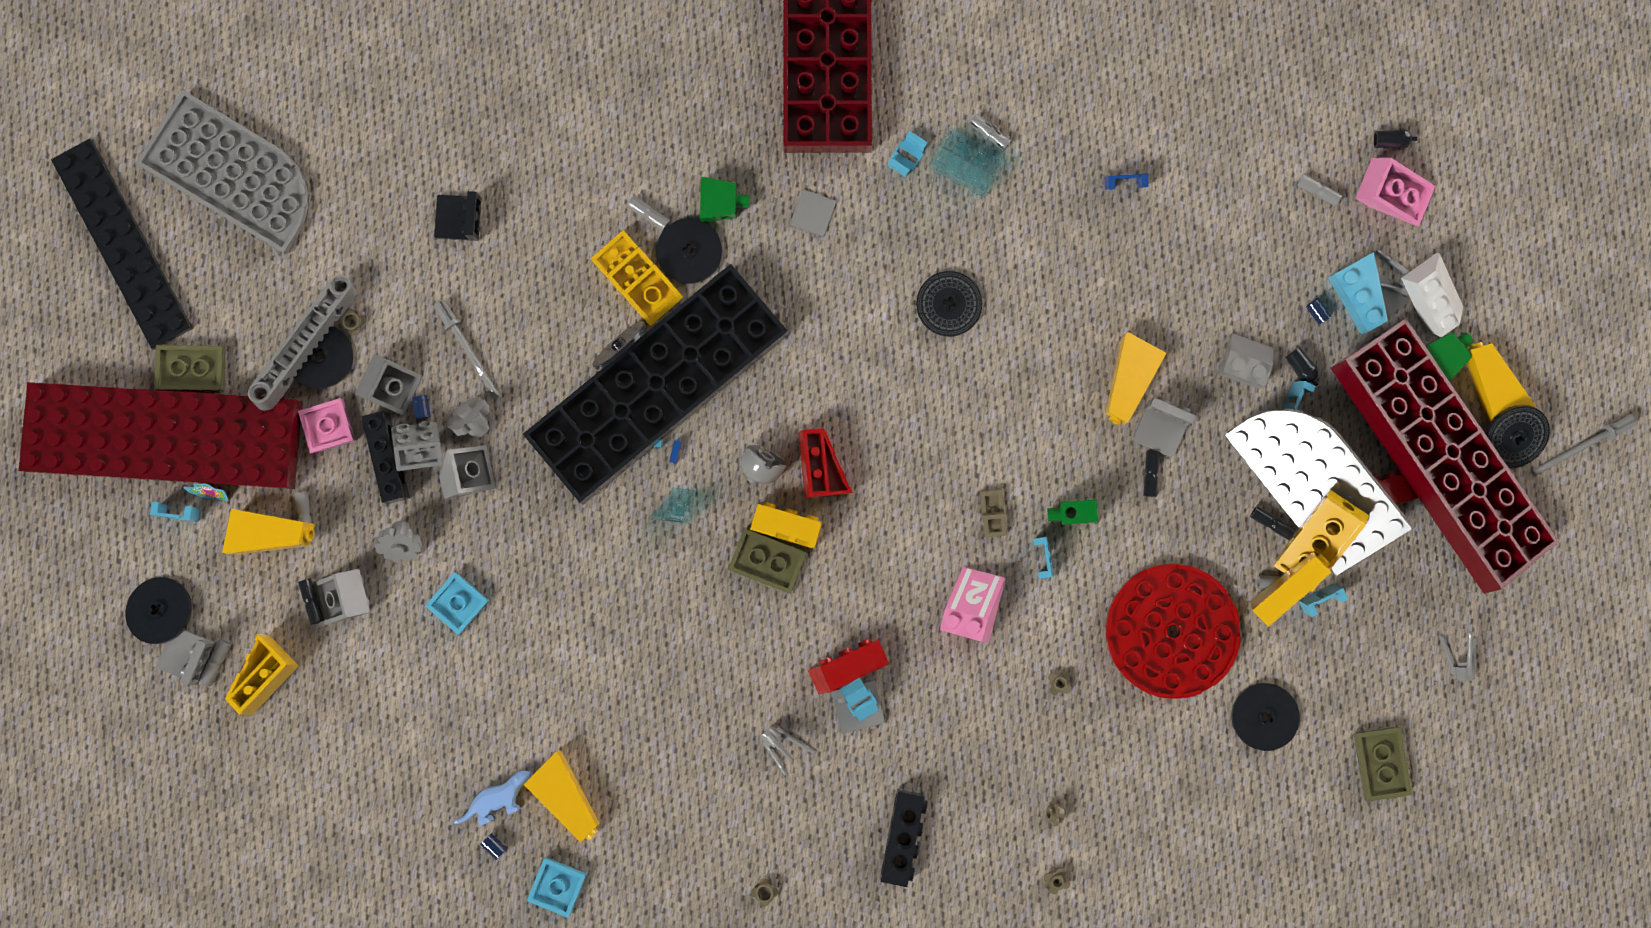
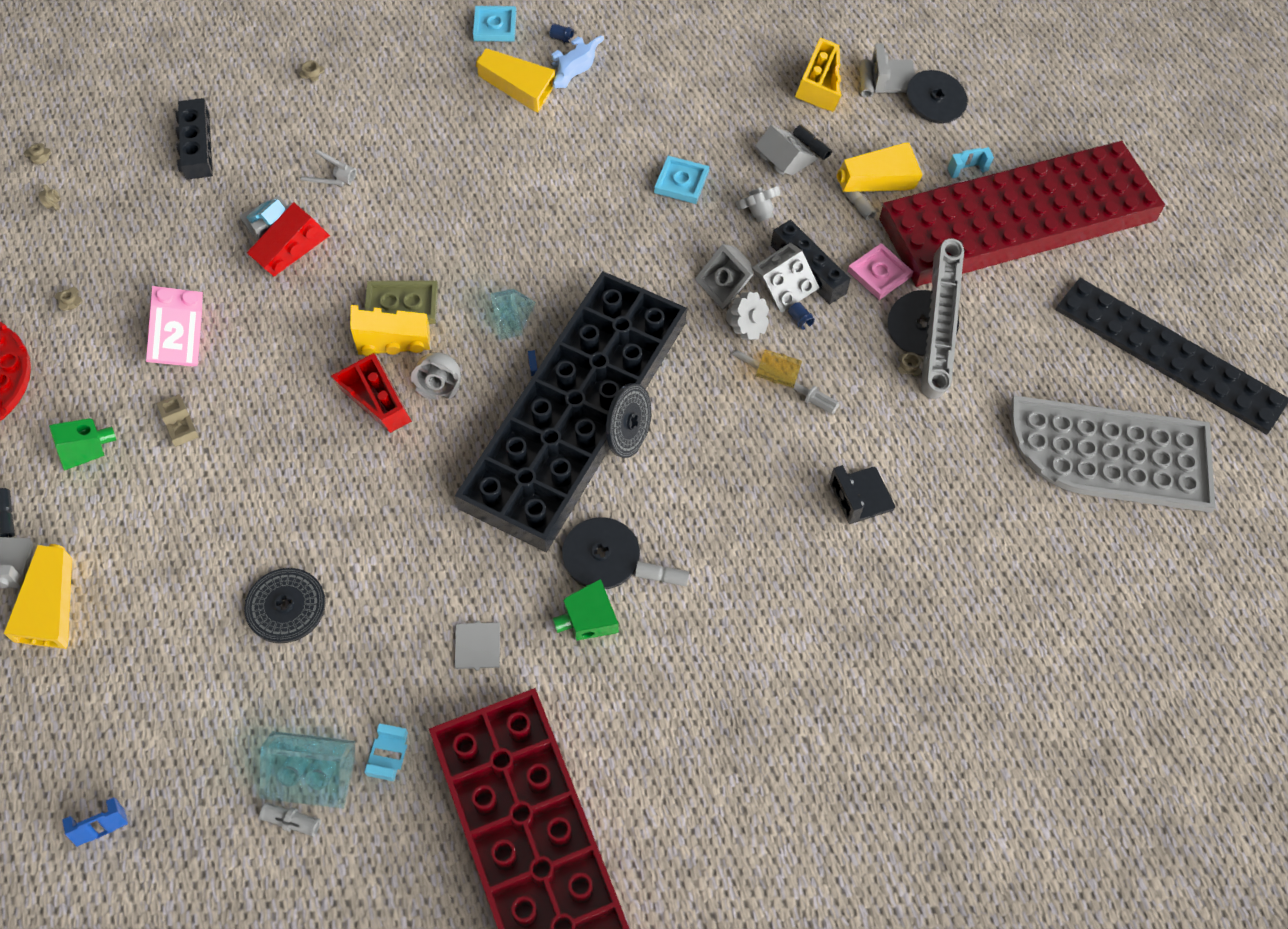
camera: 155 degrees right, 25 degrees down
(190, 368) = (1034, 274): olive plate -> none
(388, 384) = (843, 320): light grey slope -> none
(467, 360) = (778, 368): none -> clear yellow piece
(636, 277) = (646, 504): yellow slope -> none
(1045, 574) = (114, 406): medium azure piece -> none

